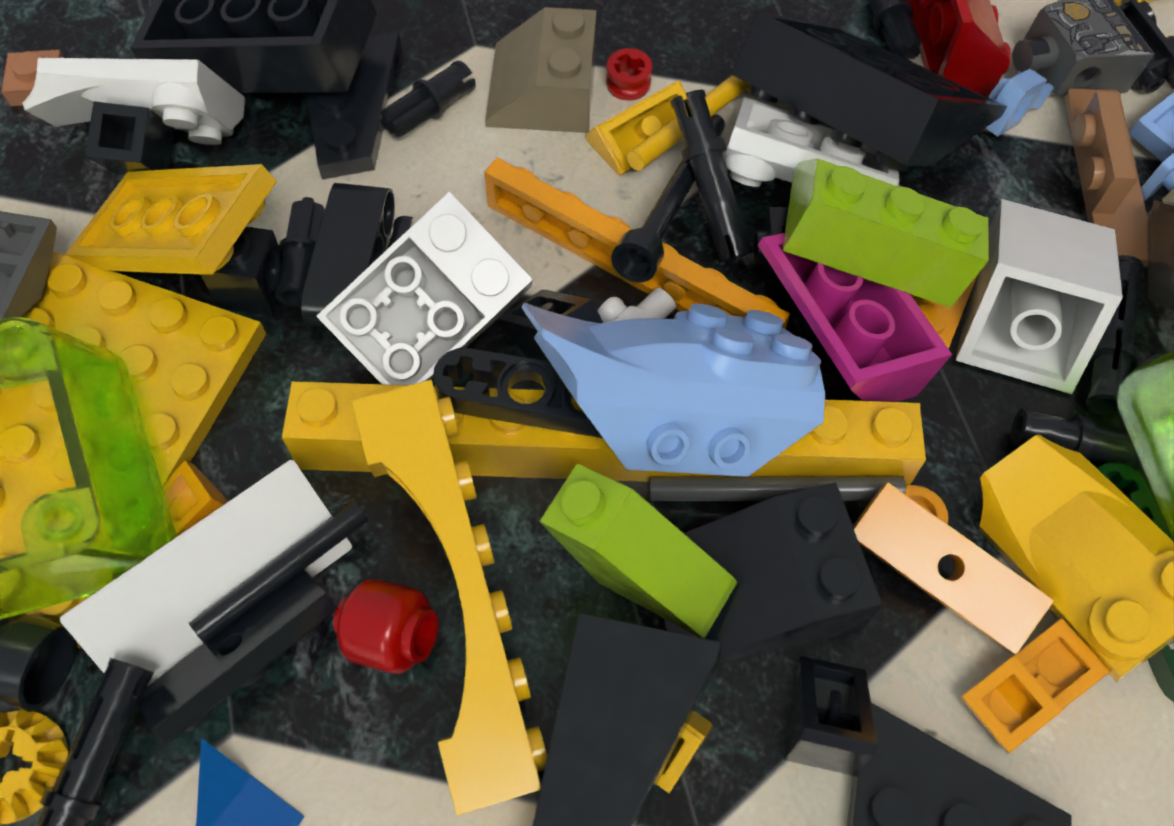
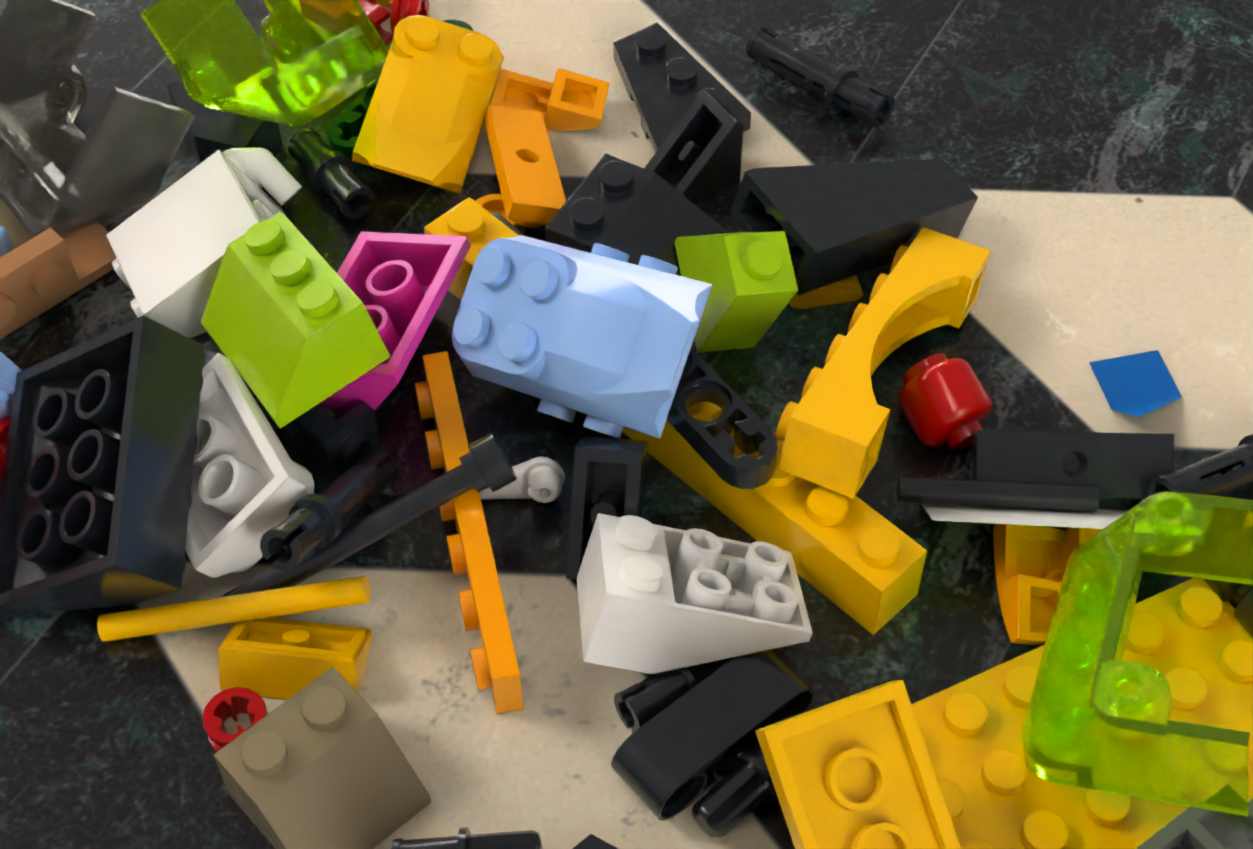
camera: 135 degrees left, 10 degrees down
(1108, 366) = (265, 170): none -> white arm

